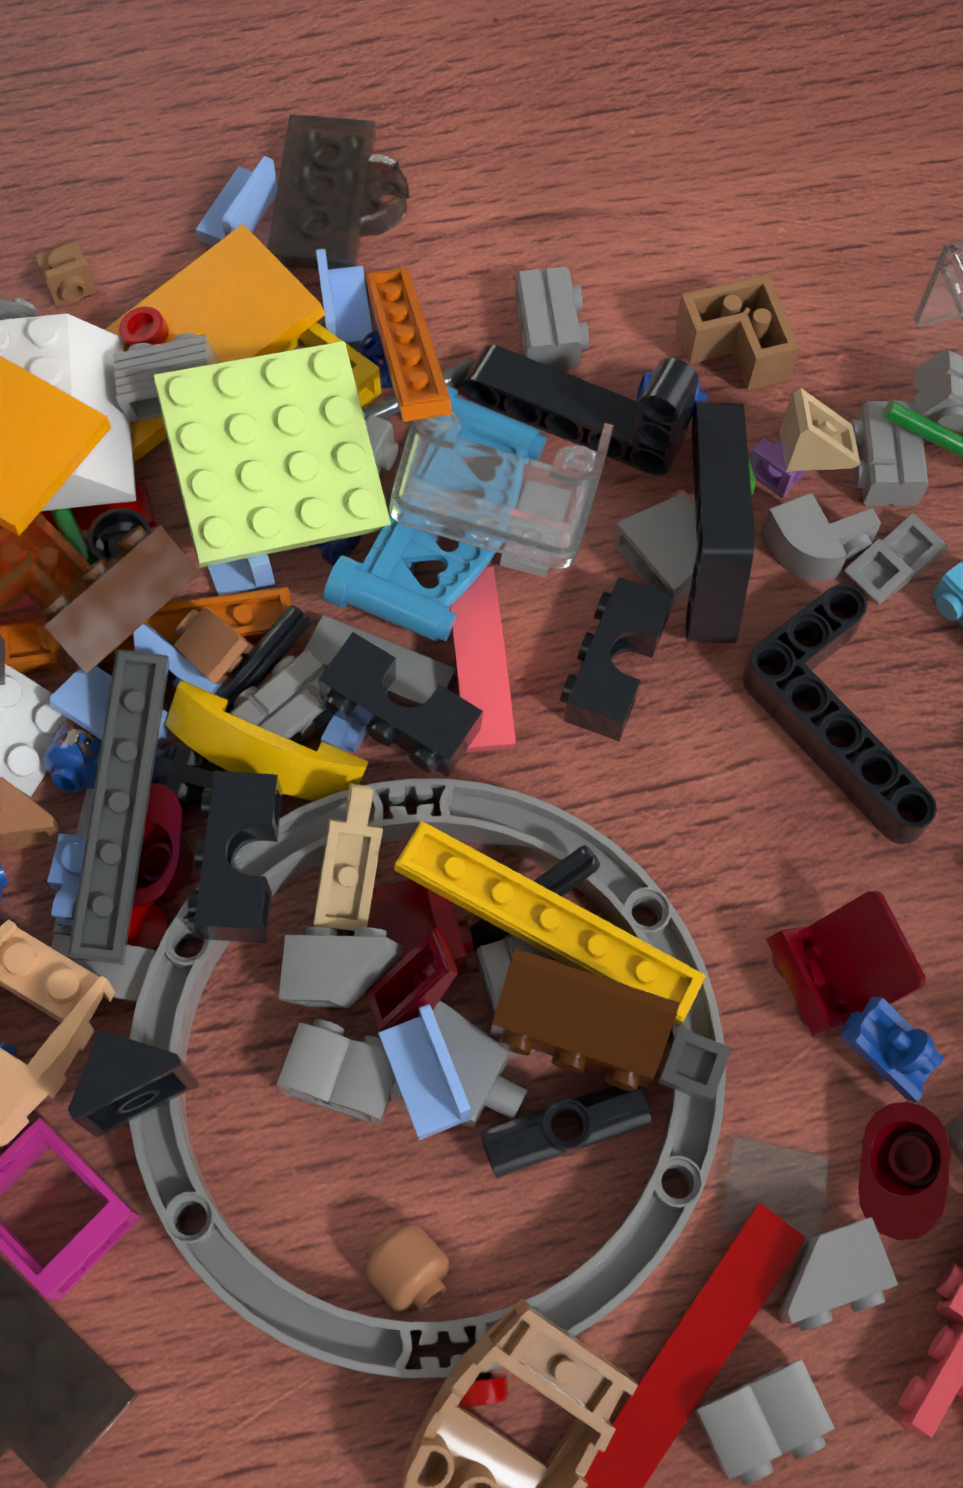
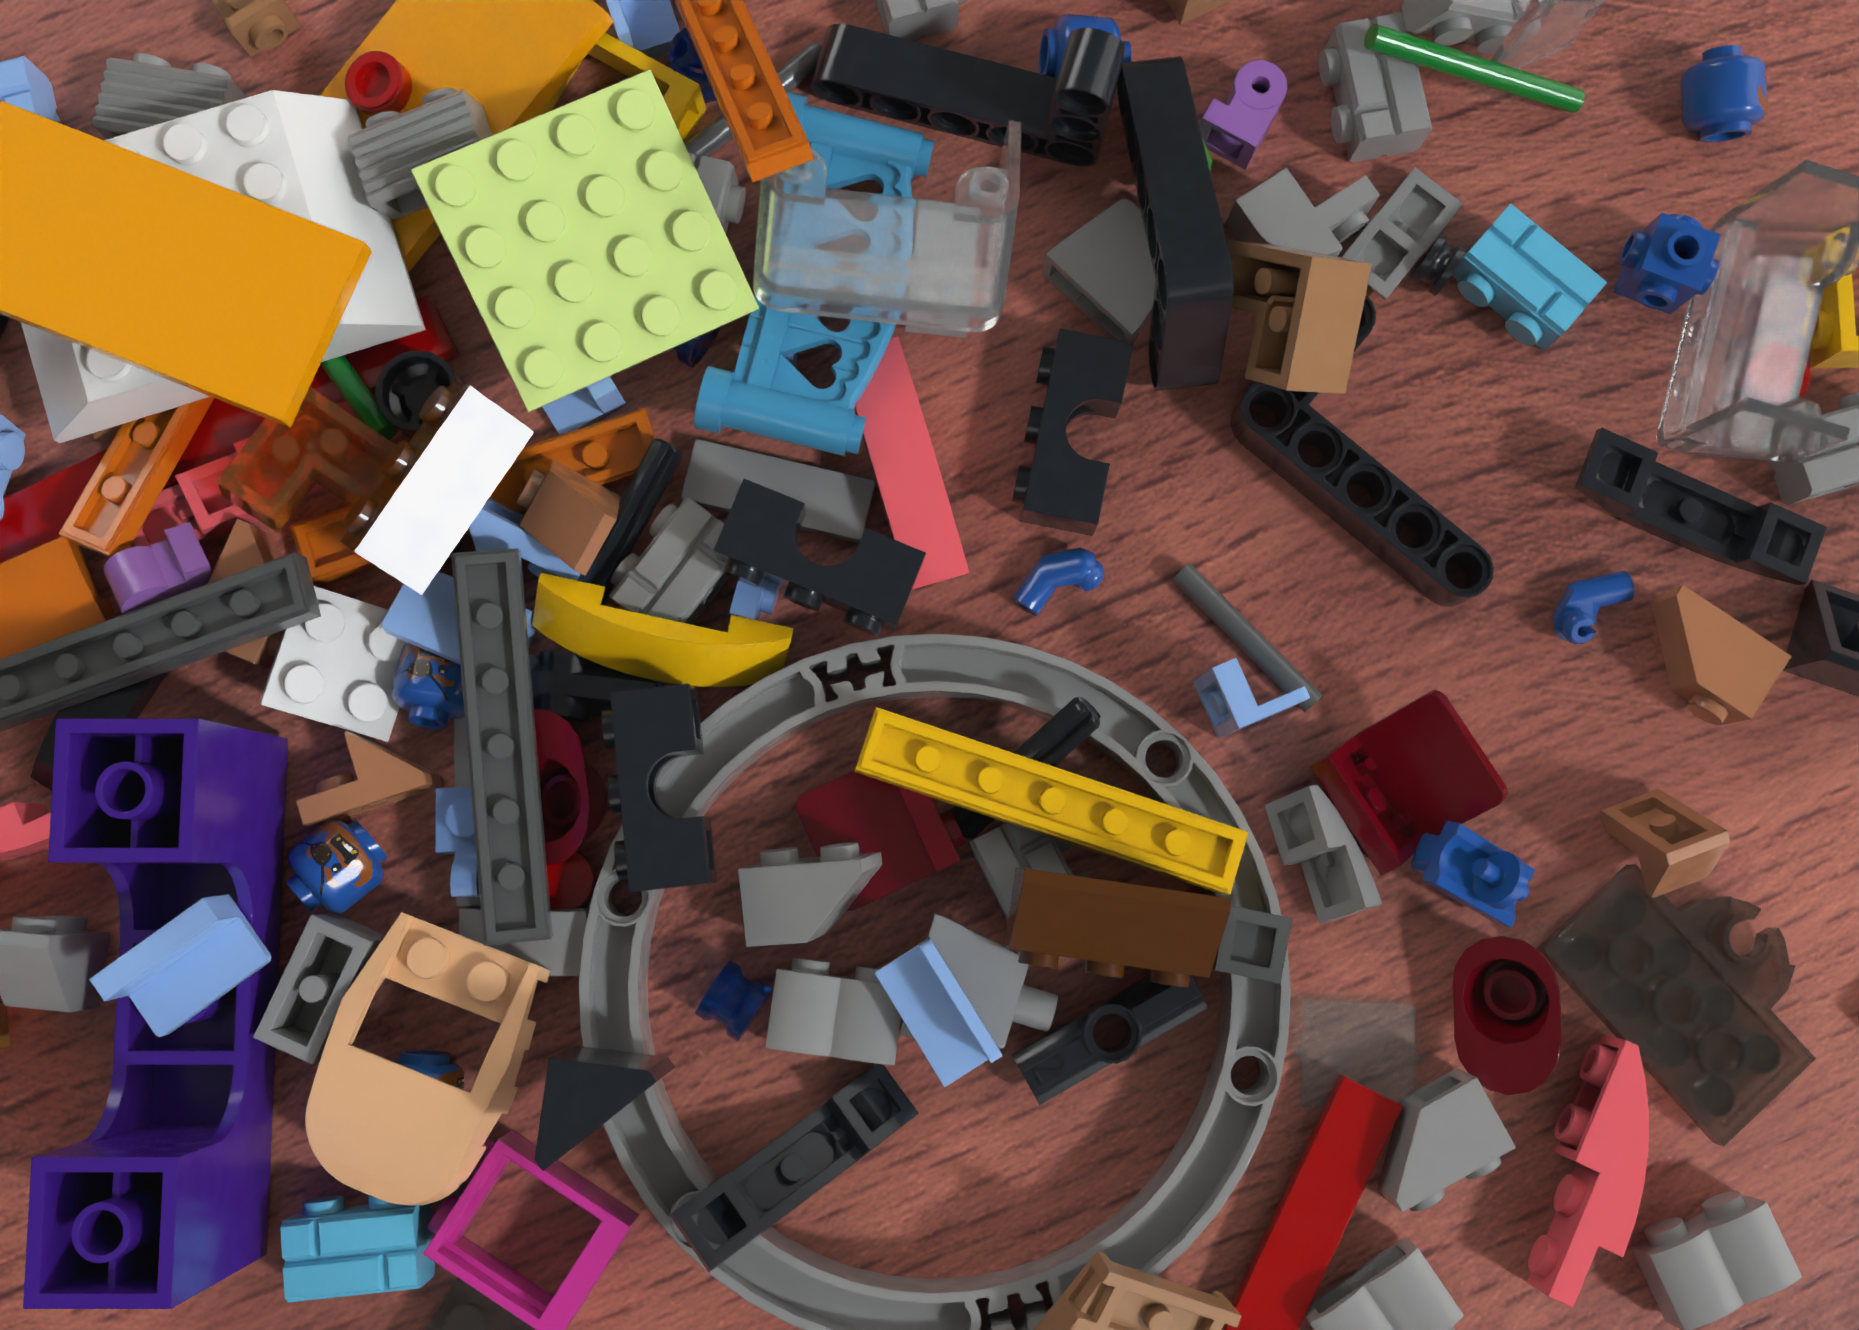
camera: 10 degrees left, 15 degrees up
(258, 1046) = (733, 1000): none -> clear blue wheel
(280, 1192) = (793, 1167): none -> black slope
(349, 865) = (797, 769): tan plate -> none
(394, 996) = (875, 911): dark red slope -> none
(407, 1268) = (956, 1224): nougat head -> none
(584, 759) = (1056, 570): none -> blue arm
(710, 881) = (1231, 702): none -> light blue panel
(731, 837) = (1244, 634): none -> dark grey bar
(764, 1001) = (1316, 836): none -> light grey slope
(807, 586) = (1304, 317): none -> medium nougat brick
(816, 436) = (1283, 90): tan slope -> none
(921, 584) = (1438, 264): none -> black bush

